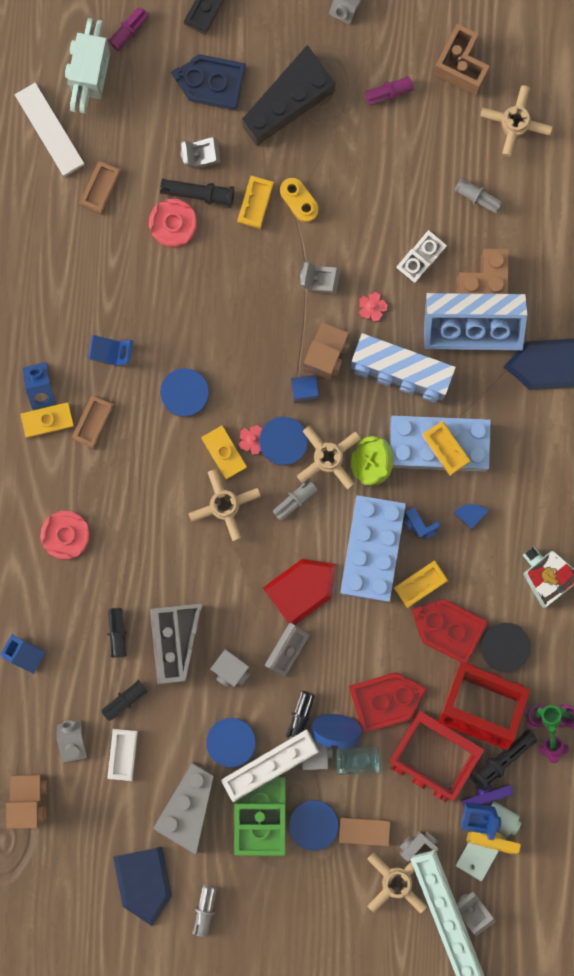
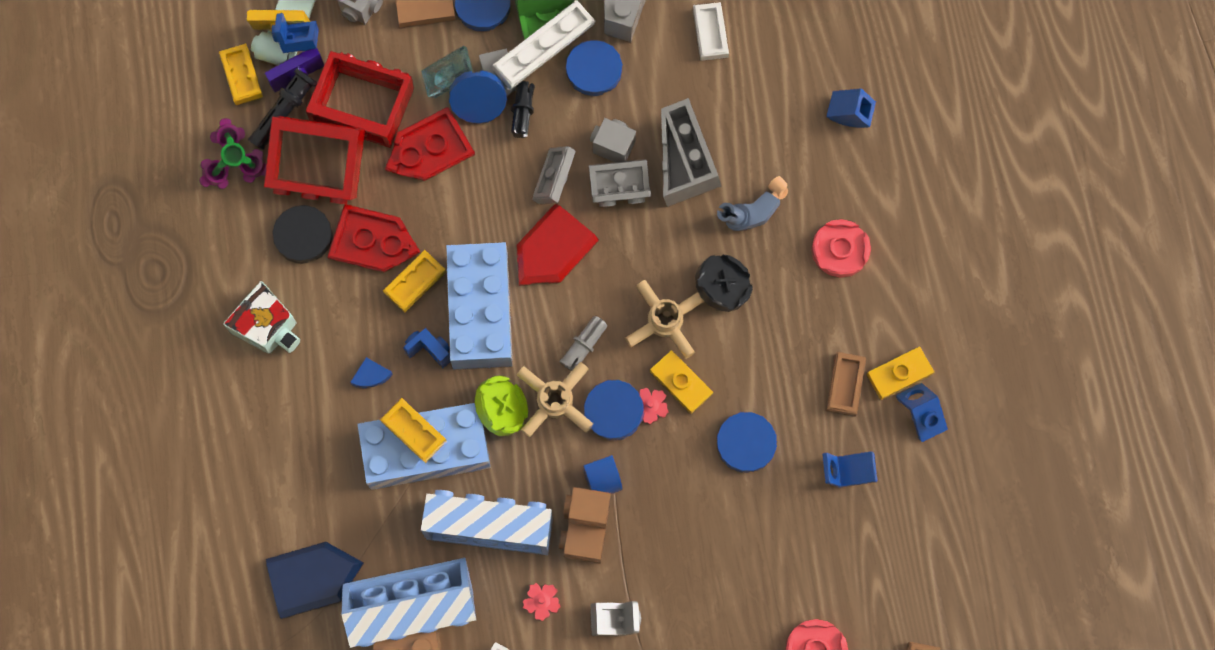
camera: 165 degrees right, 10 degrees down
(71, 741) = (772, 32): light grey bracket -> none
(117, 632) = (751, 152): black axle -> none
(124, 700) = (723, 85): black axle -> none
(132, 577) = (748, 216): none -> sand blue arm
(169, 524) = (723, 282): none -> black tile
(234, 629) = (619, 182): none -> light grey bracket
(533, 803) = (240, 74): none -> yellow plate

